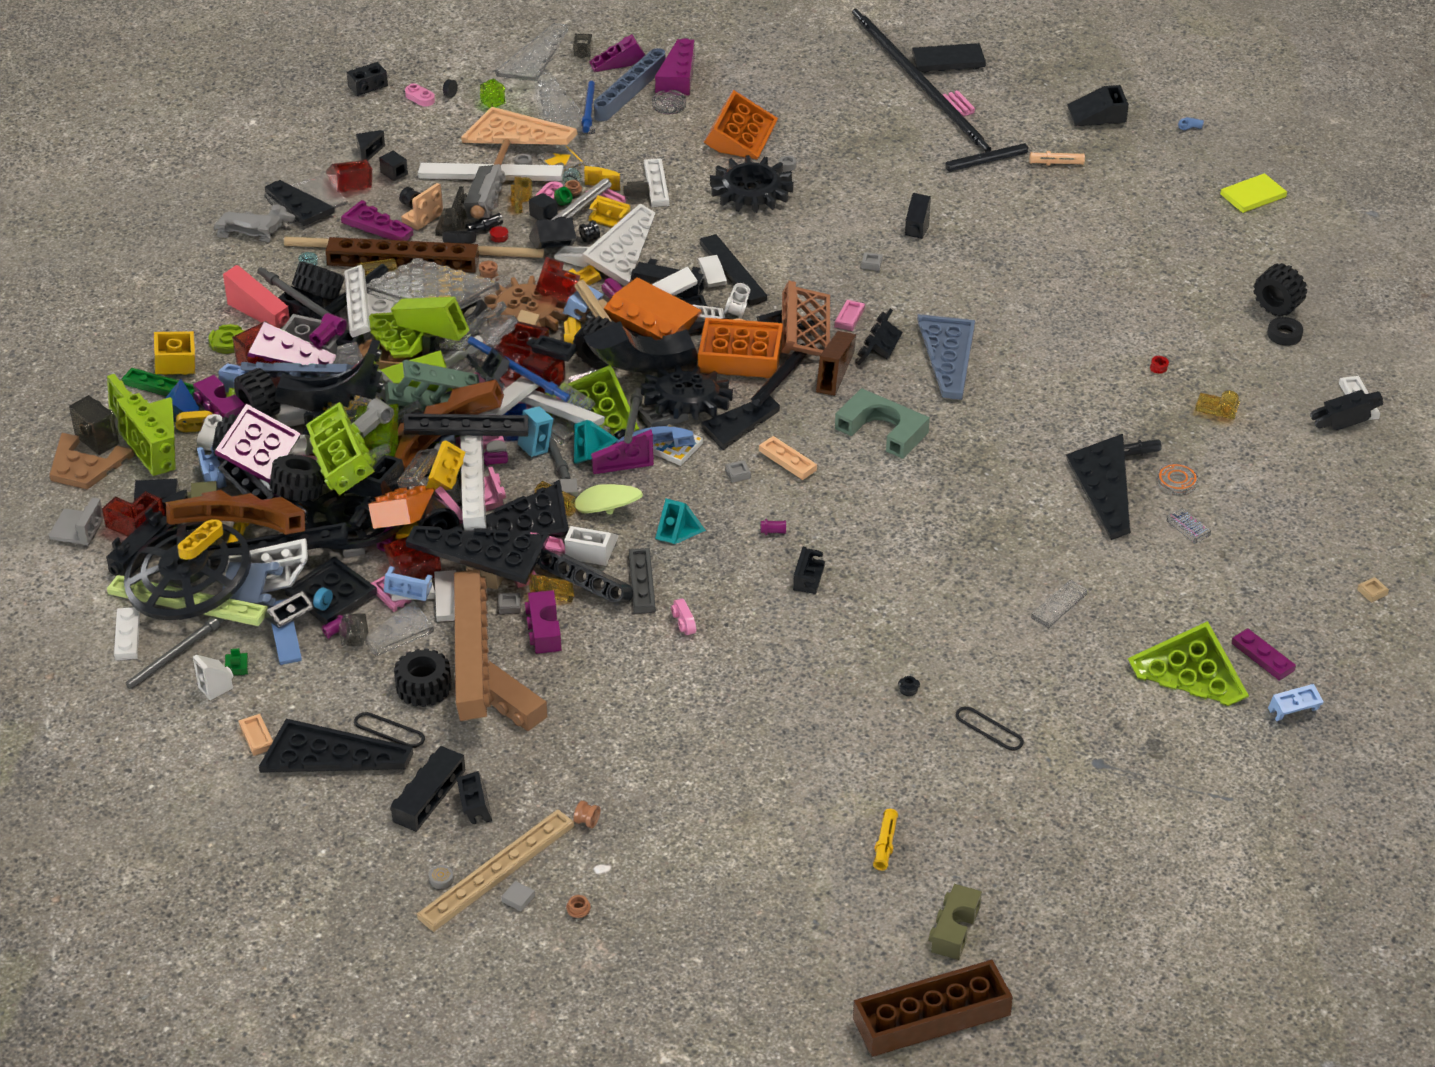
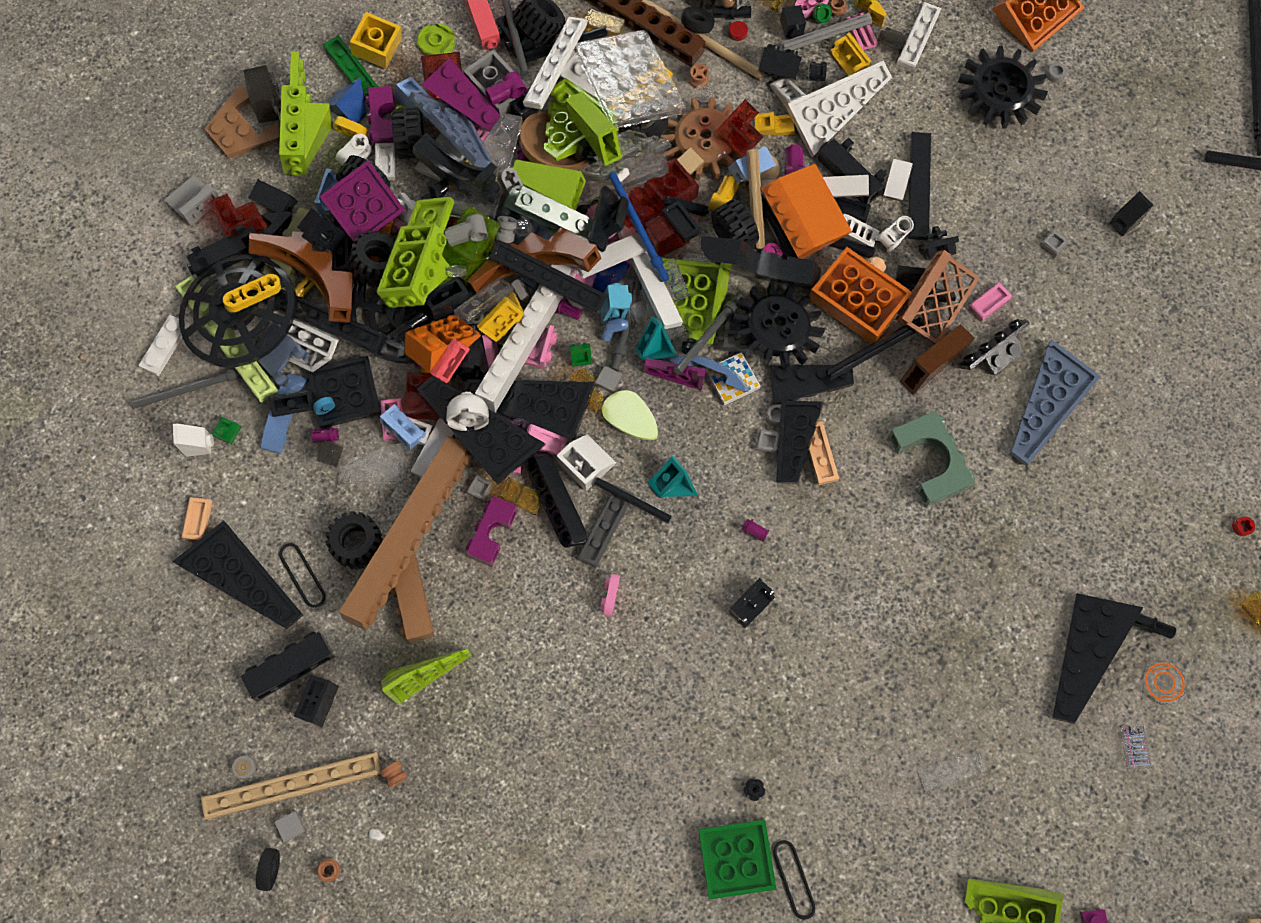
camera: 30 degrees right, 30 degrees up
(233, 475) = (322, 231): none -> black brick
(403, 408) = (505, 231): none -> light grey wheel
(422, 507) = (450, 360): none -> coral tile
(468, 530) = (467, 411): none -> white cylinder
(523, 923) = (267, 869): none -> black tyre
(529, 479) = (580, 354): none -> green tile
(543, 449) = (613, 326): none -> medium blue arm
(556, 732) = (410, 679): none -> lime slope
(649, 549) = (632, 500): none -> black bar
(730, 452) = (773, 414): none -> light grey tile
(759, 453) = (796, 433): none -> black wing
(774, 295) = (947, 244): none -> black hips
(931, 733) = (737, 859): none -> green plate

